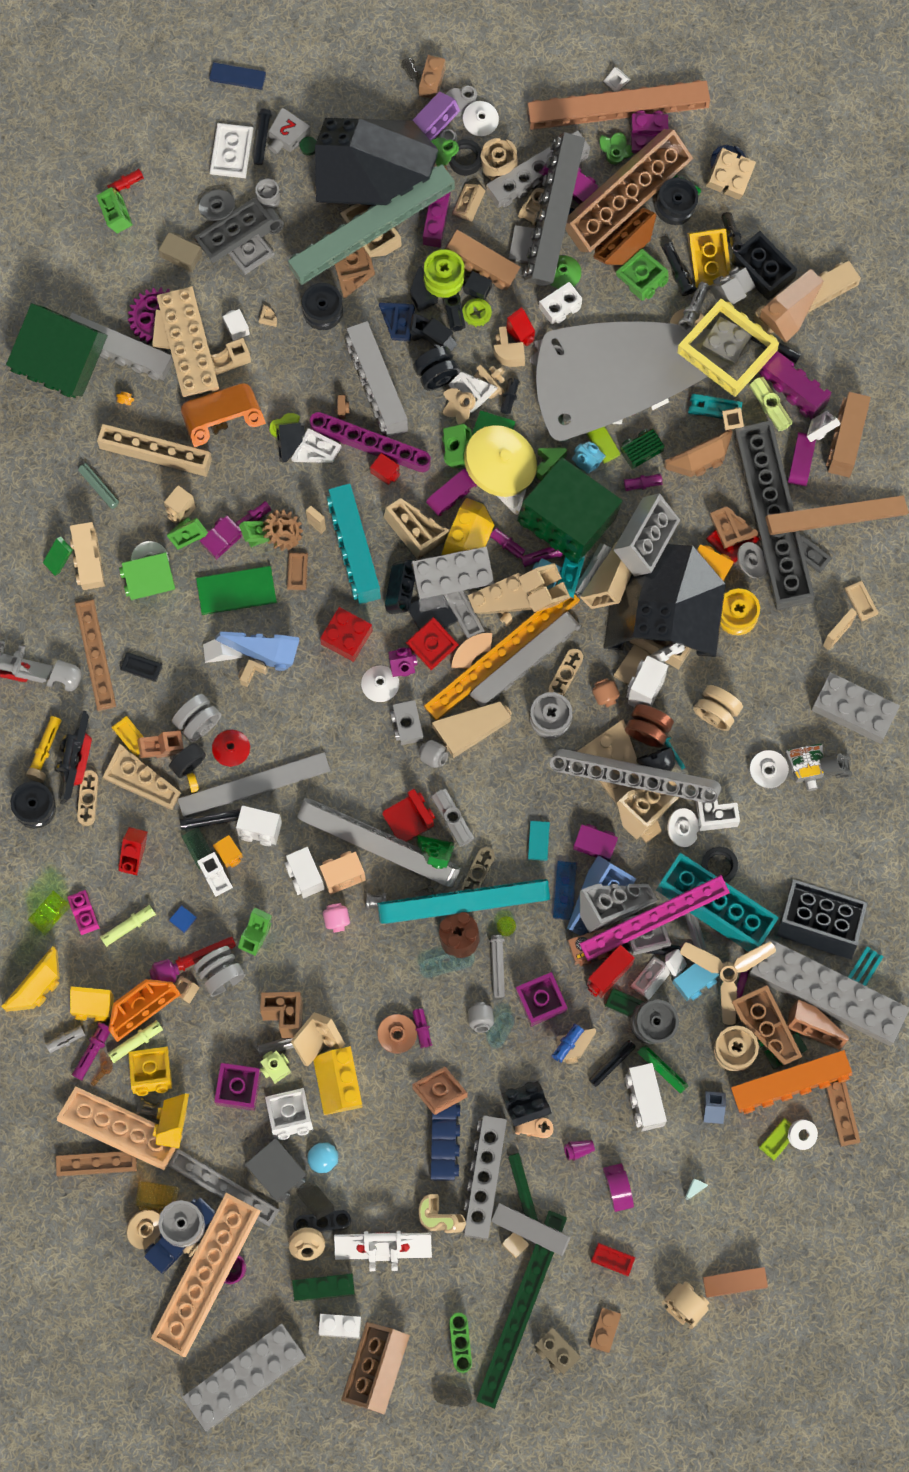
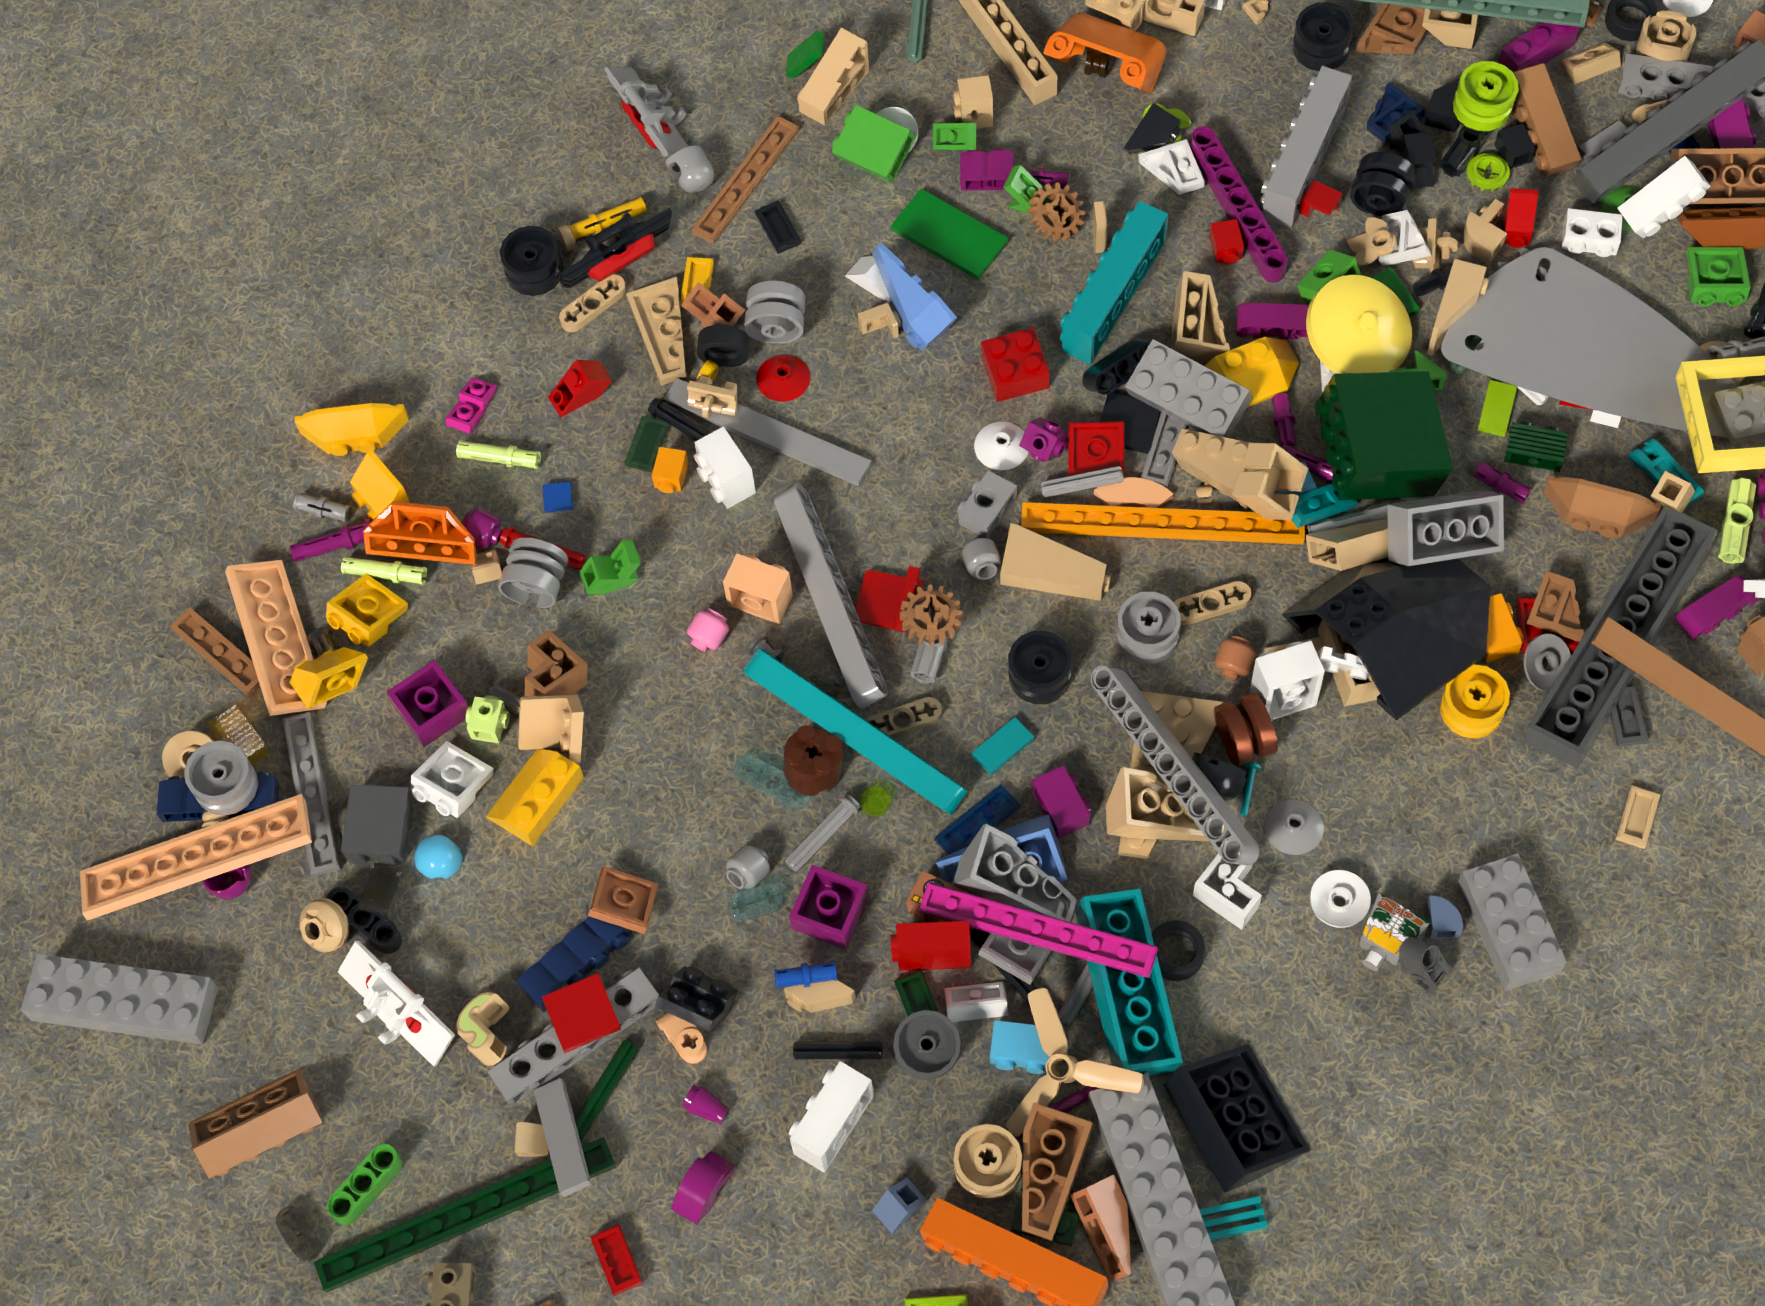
camera: 50 degrees right, 10 degrees down
(49, 913) = (436, 373): clear neon green brick -> none
(101, 1073) = (322, 572): clear orange hand -> none
(211, 795) = (712, 398): none -> tan hips
(214, 874) = (635, 474): white brick -> none
(297, 571) = (1031, 267): medium nougat tile -> none
(305, 873) = (717, 550): white brick -> none
(323, 1287) = (293, 986): dark green brick -> none
(339, 1326) = (265, 1042): white brick -> none
(343, 407) = (1244, 147): medium nougat plate -> none
(390, 1026) = (641, 790): nougat dish -> none
(411, 402) = (1320, 198): none -> red panel
(422, 1028) = (676, 822): magenta axle -> none
(435, 851) = (878, 653): green wing -> none
(441, 802) = (917, 618): none -> medium nougat gear
(442, 667) = (1082, 481): none -> light grey axle
(480, 1163) = (581, 1013): none -> red tile
(516, 795) = (1039, 667): none -> black wheel
(526, 658) = (1182, 549): light grey beam -> none
(531, 397) = (1460, 295): none -> tan slope
(584, 256) = (1664, 197): none -> white brick
(588, 456) = (1464, 405): medium azure brick -> none
(663, 1069) = (885, 1107): green tile -> none
(675, 962) = (1015, 1007): white slope -> none
(689, 825) = (1188, 870): white dish -> none
(695, 1187) = (783, 1271): light aqua slope -> none
(710, 761) = (1293, 839): none -> light grey dish
(718, 707) = (1345, 778): tan wheel -> none
(823, 734) = (1443, 918): none -> sand blue brick
(840, 629) = (1577, 818): tan tile -> none

